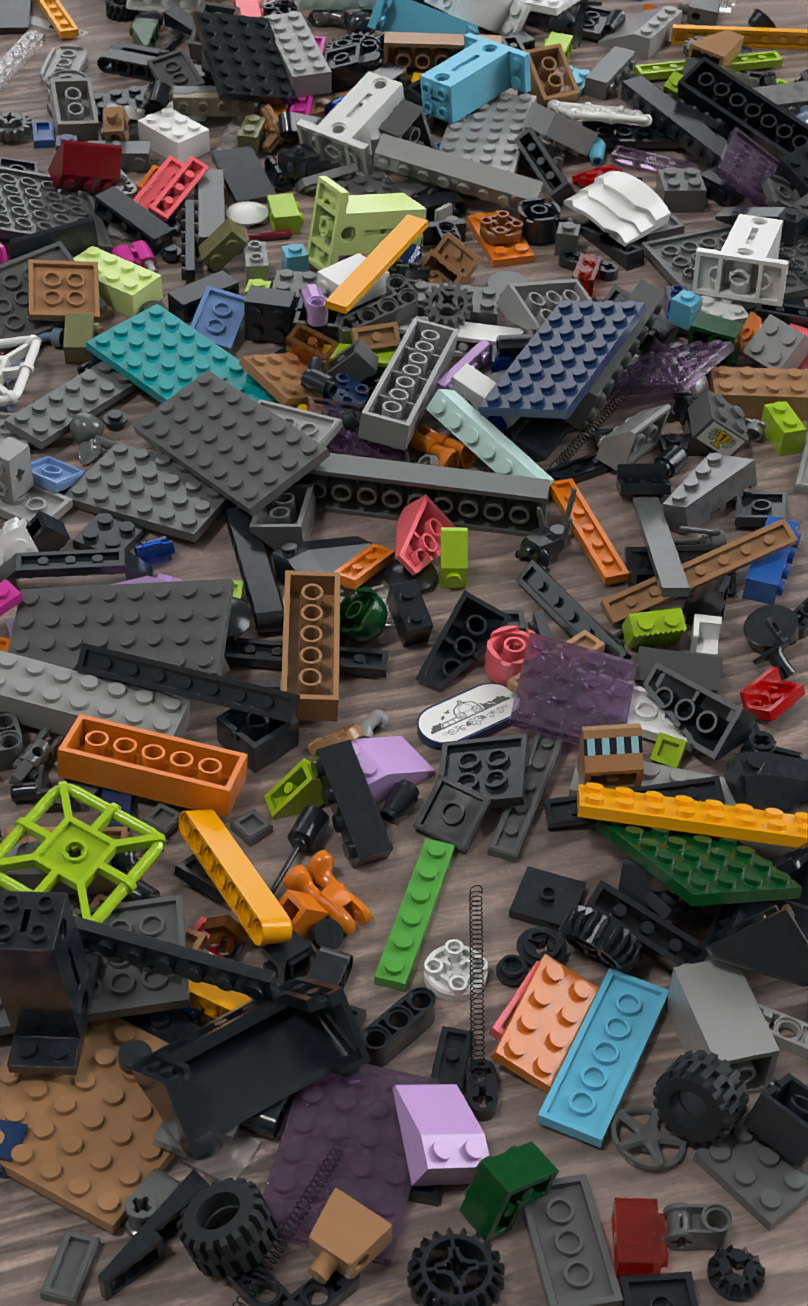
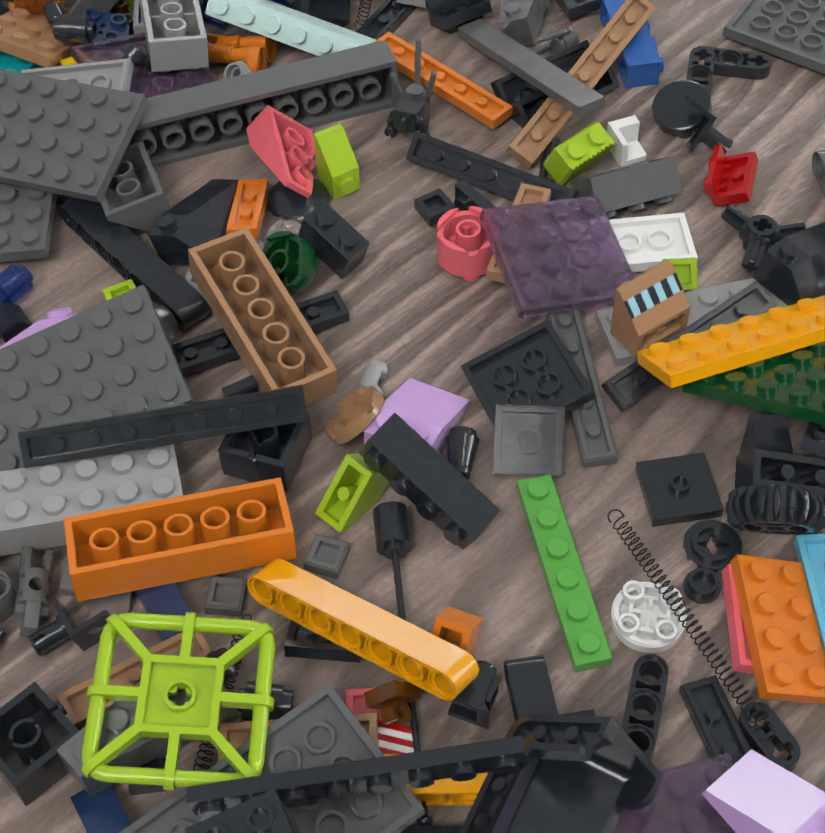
camera: 25 degrees left, 10 degrees up
(326, 934) = (495, 643): black tile -> none
(334, 897) = (478, 597): orange piece -> none
(461, 640) = (402, 245): black wedge -> none
(466, 715) = (461, 325): white tile -> none
(701, 715) = (692, 223): black wedge -> none
(708, 599) = (618, 100): black slope -> none

